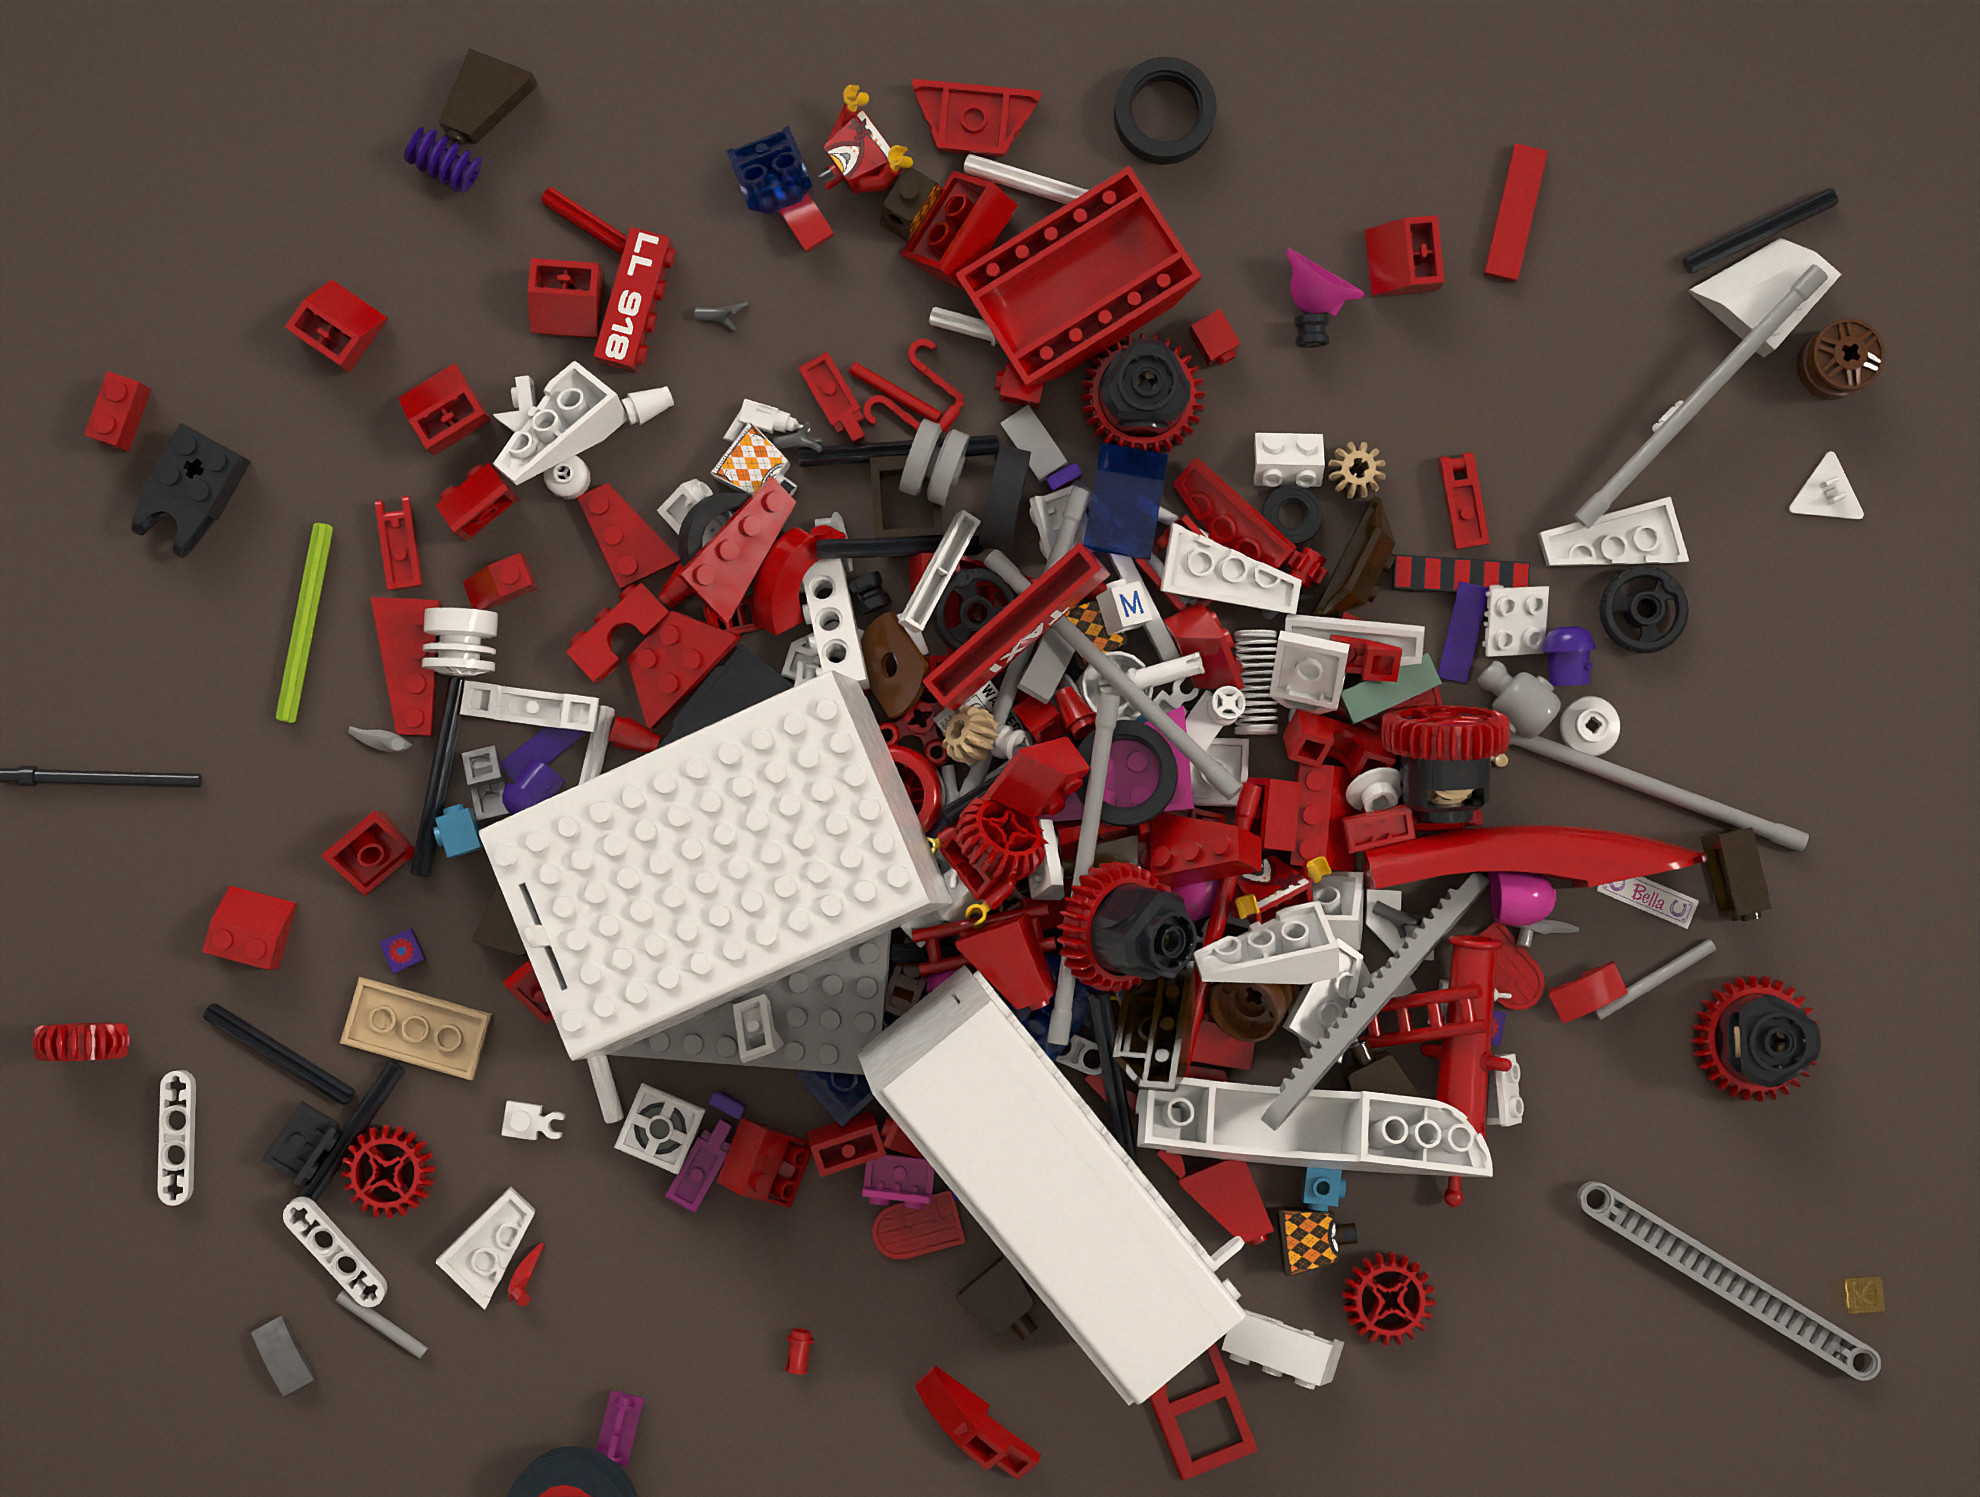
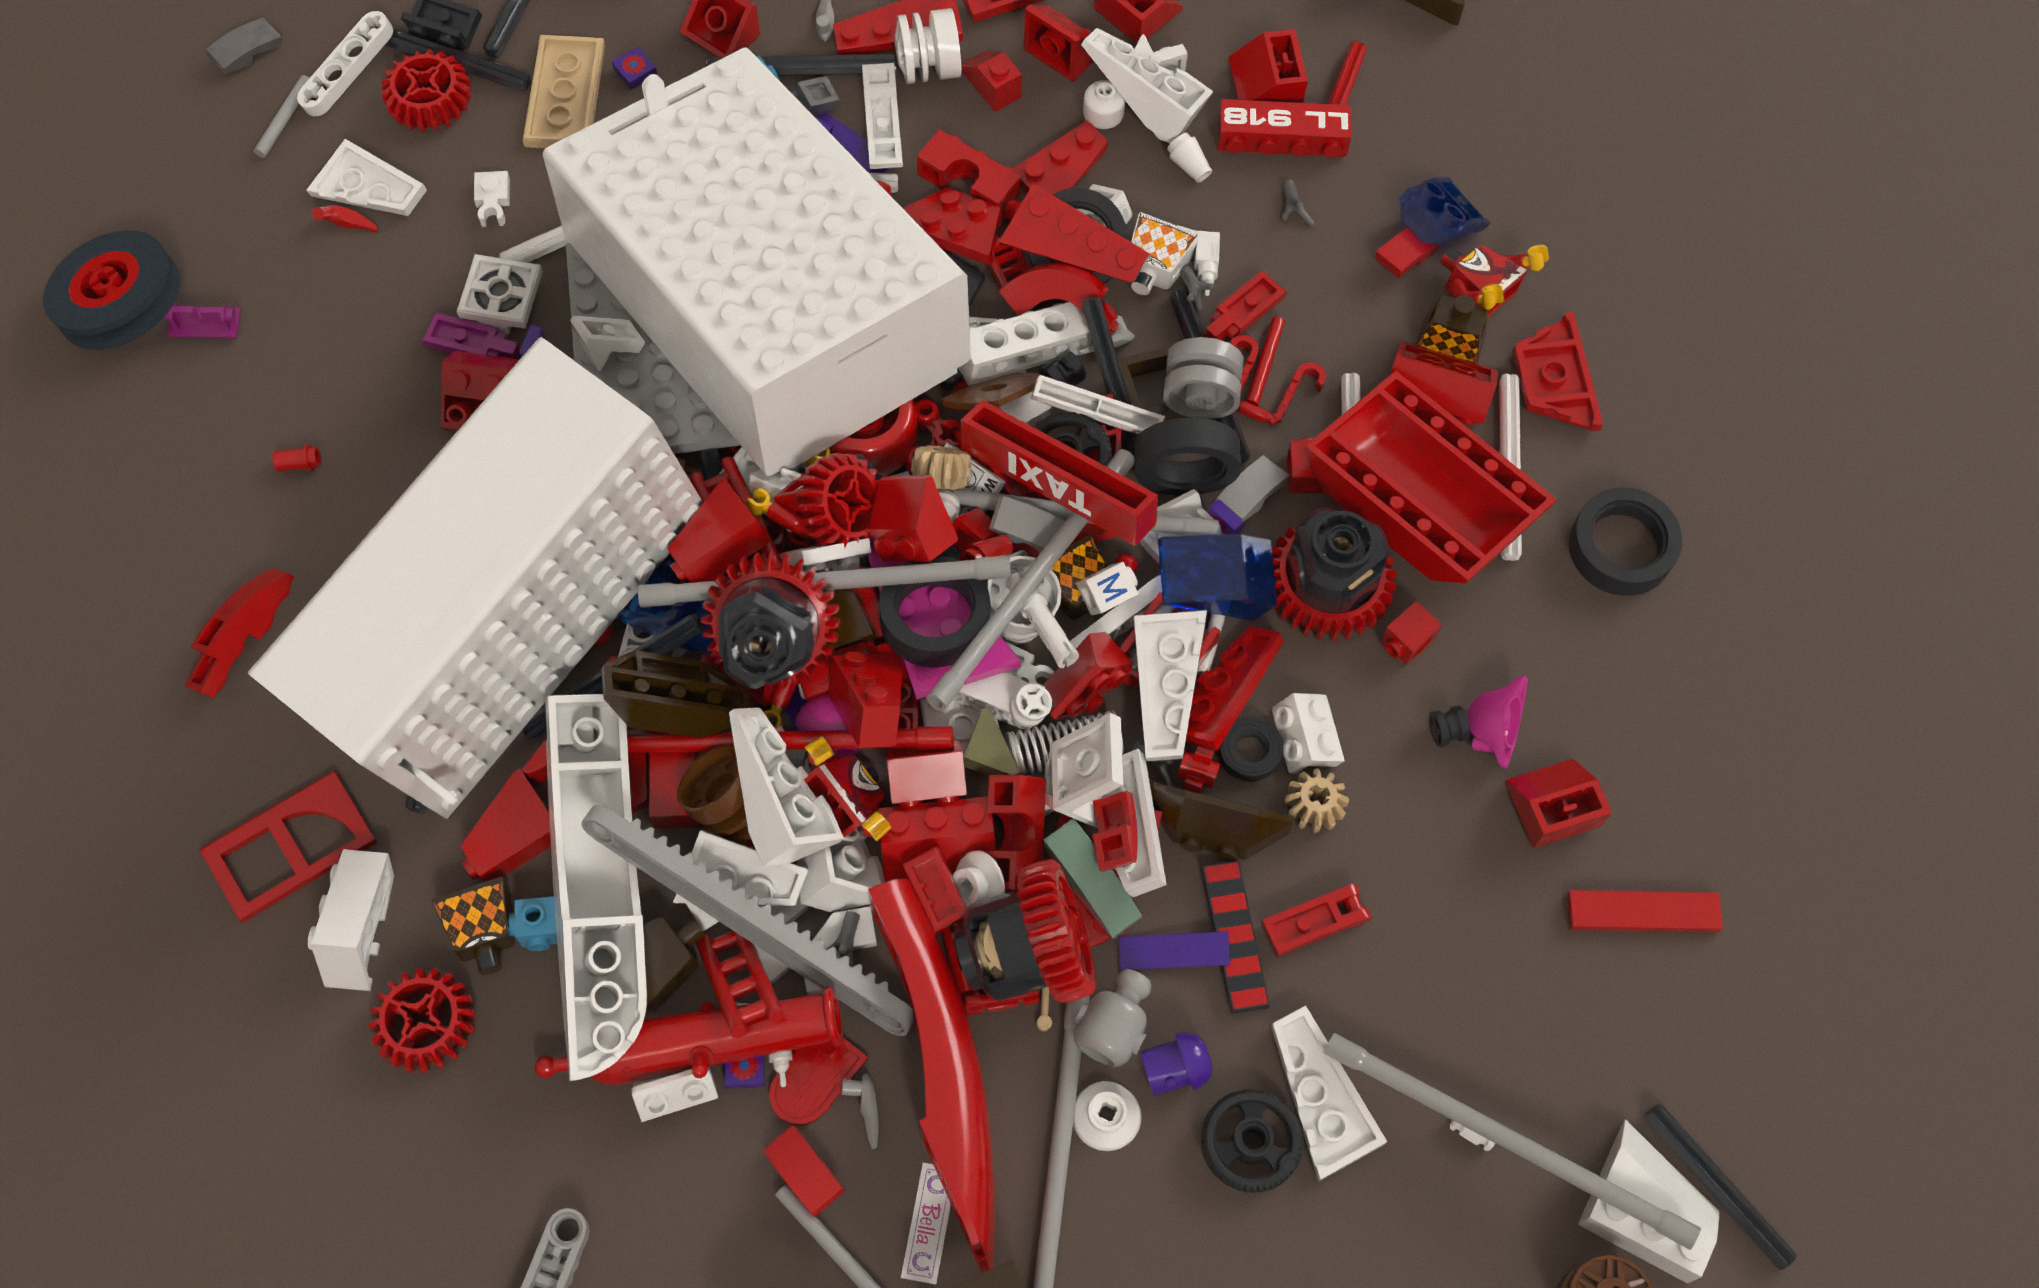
camera: 80 degrees right, 20 degrees down
(1252, 753) = (988, 749): none -> olive slope
(1515, 620) = (1202, 997): white hinge -> none
(1520, 897) = (894, 1066): dark pink piece -> none

